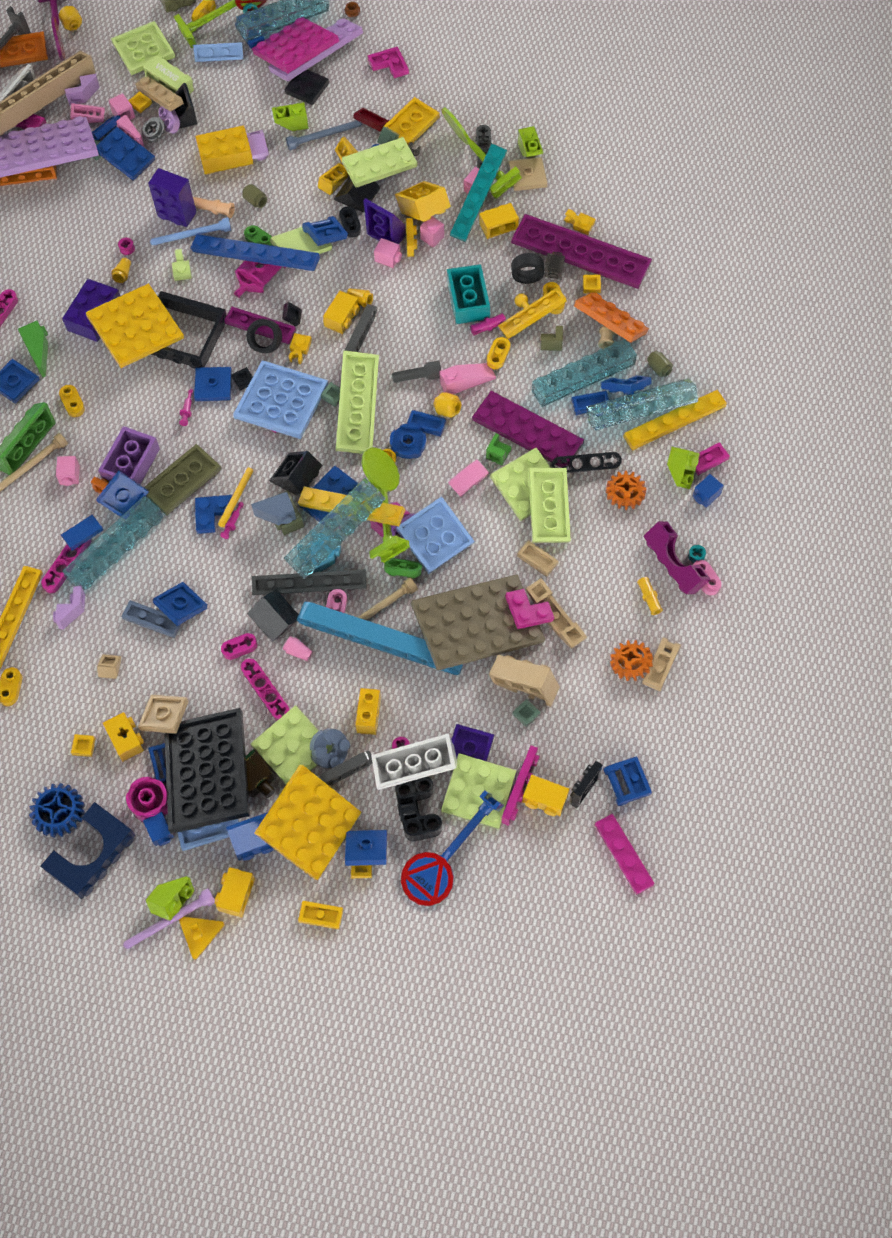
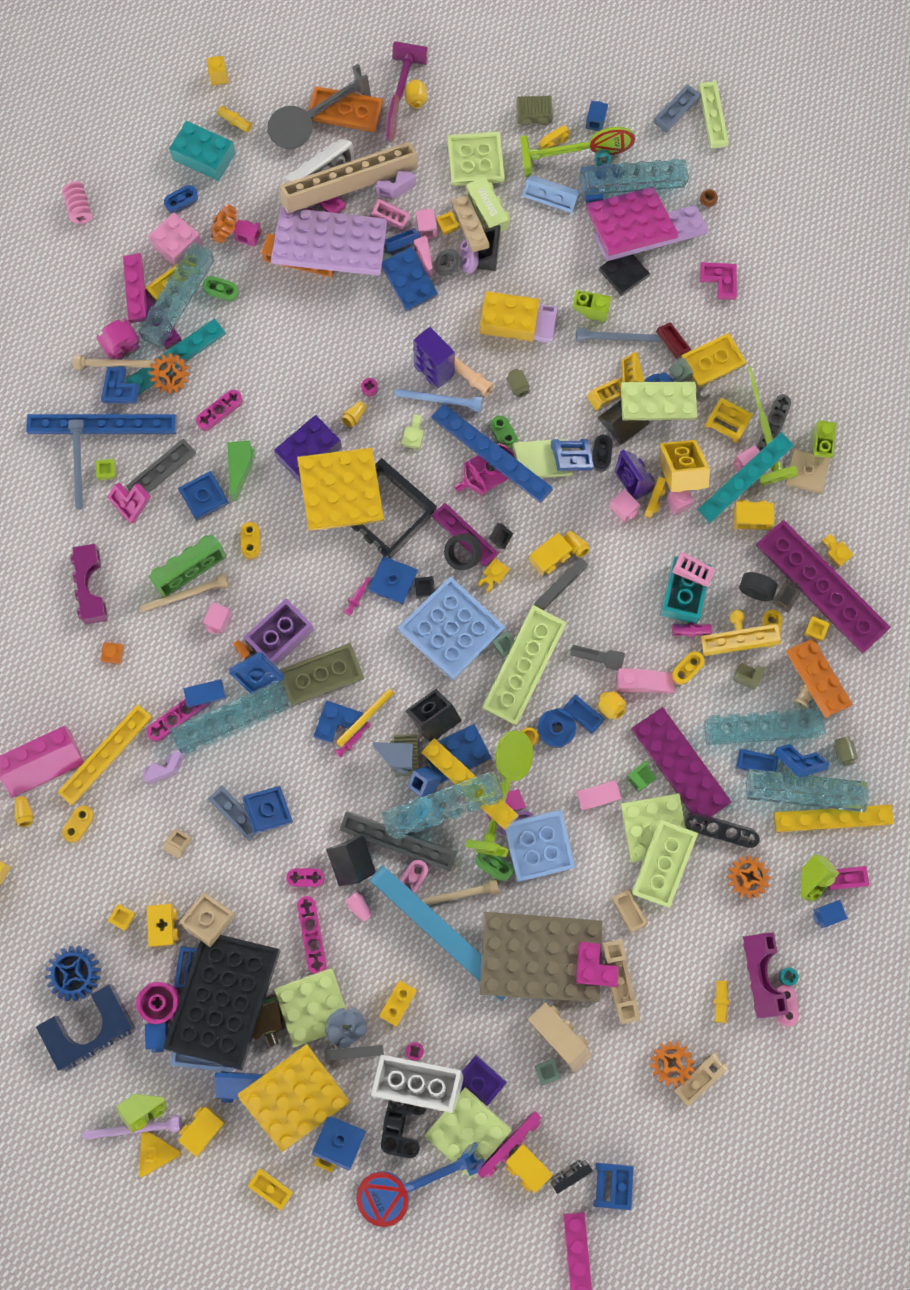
camera: 20 degrees right, 10 degrees up
(308, 521) = (424, 781): none -> blue brick
(445, 155) = (731, 415): none -> yellow plate
(457, 274) = (691, 575): none -> bright pink slope

